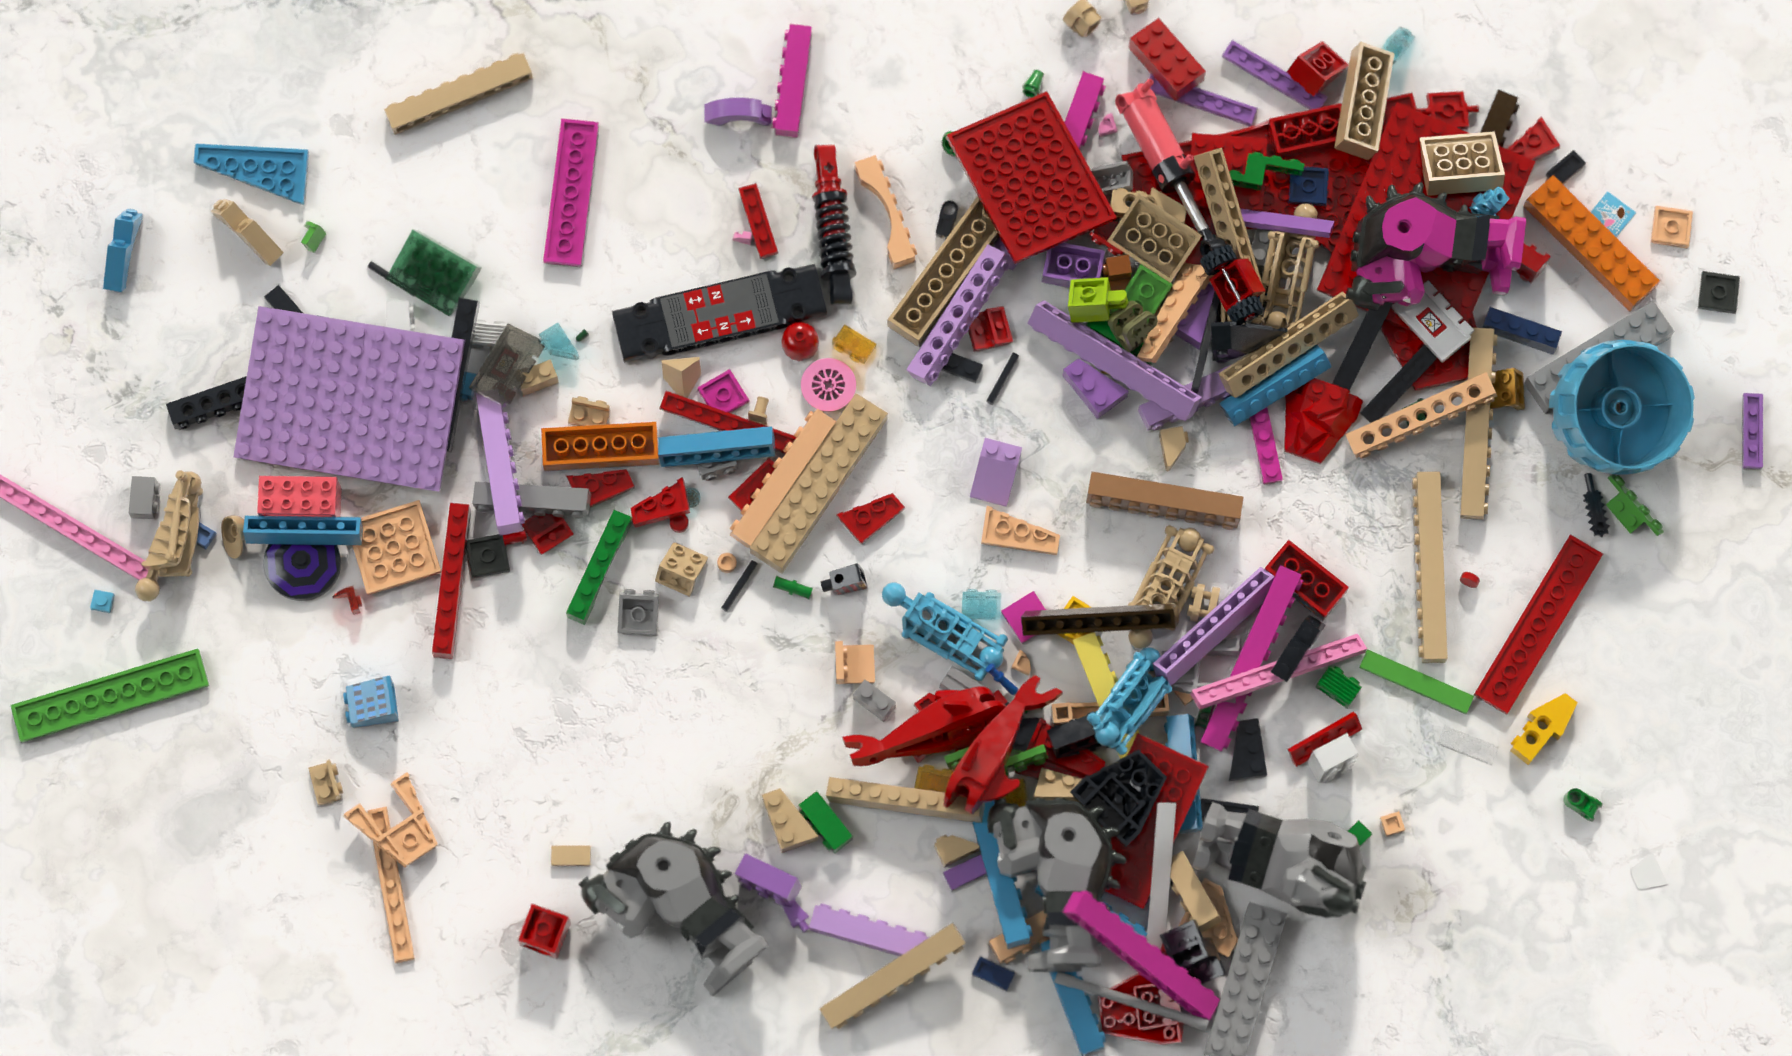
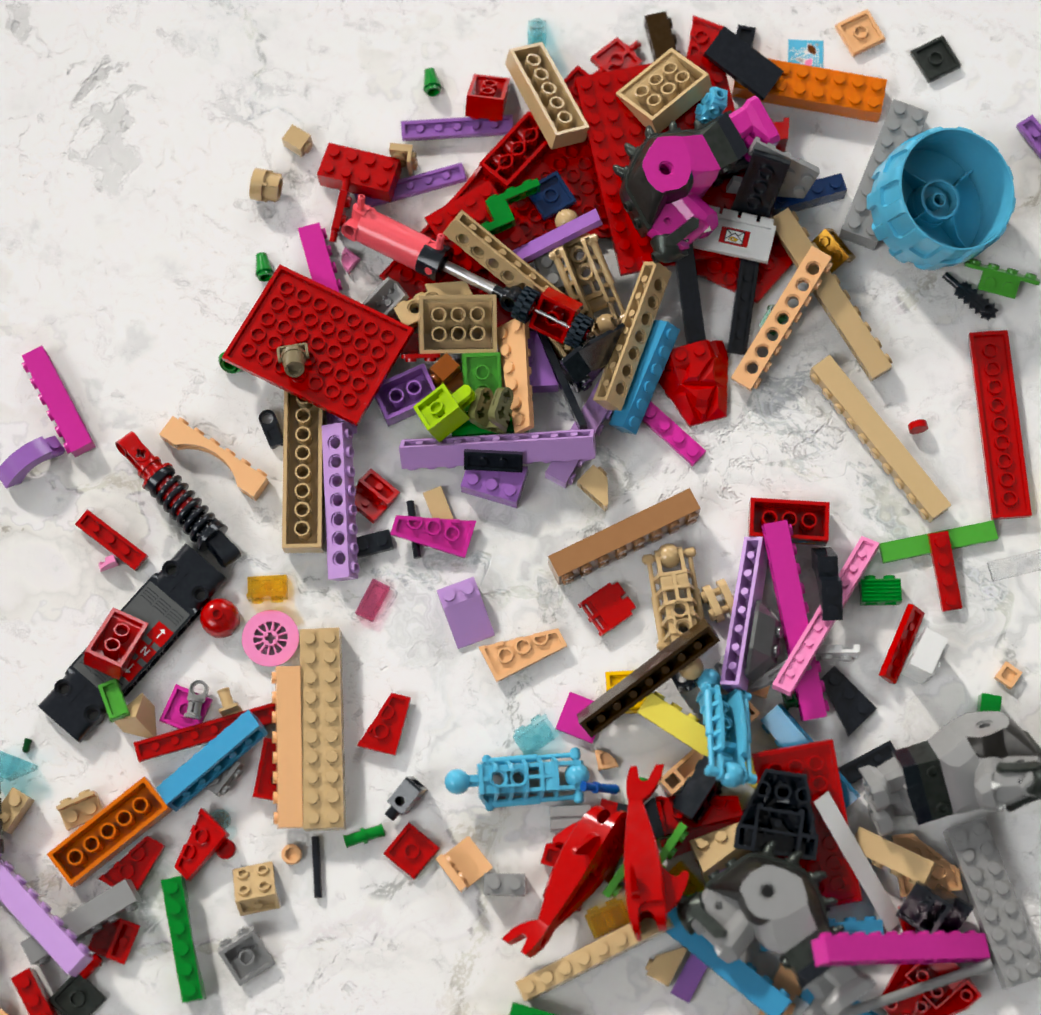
camera: 30 degrees left, 0 degrees up
(673, 346) = (114, 700): none -> bright green tile
(705, 303) = (115, 643): none -> red slope
(736, 392) = (195, 701): none -> light grey connector
(821, 625) = (411, 850): none -> red tile
(929, 411) = (372, 600): none -> clear pink tile
(1002, 175) = (293, 358): none -> dark tan piece
(1018, 394) = (440, 534): none -> dark pink wing
(1034, 375) = (437, 503): none -> tan tile
(1103, 366) = (493, 460): none -> black tile
(1111, 547) = (608, 607): none -> red plate
(1128, 651) = (687, 685): none -> black bracket
(1136, 75) = (344, 202): none -> red plate
(1211, 656) = (763, 644): none -> dark grey wedge
(1213, 70) = (405, 154): none -> tan bracket
(1272, 714) = (846, 654): none -> white wing
(1280, 25) = (431, 83): none -> green cone
(1403, 707) = (944, 571): none -> red plate
(1480, 294) = (760, 184): none -> black tile
(1509, 306) = (798, 178): none -> light grey wing
(1546, 185) = (743, 63): none -> black tile

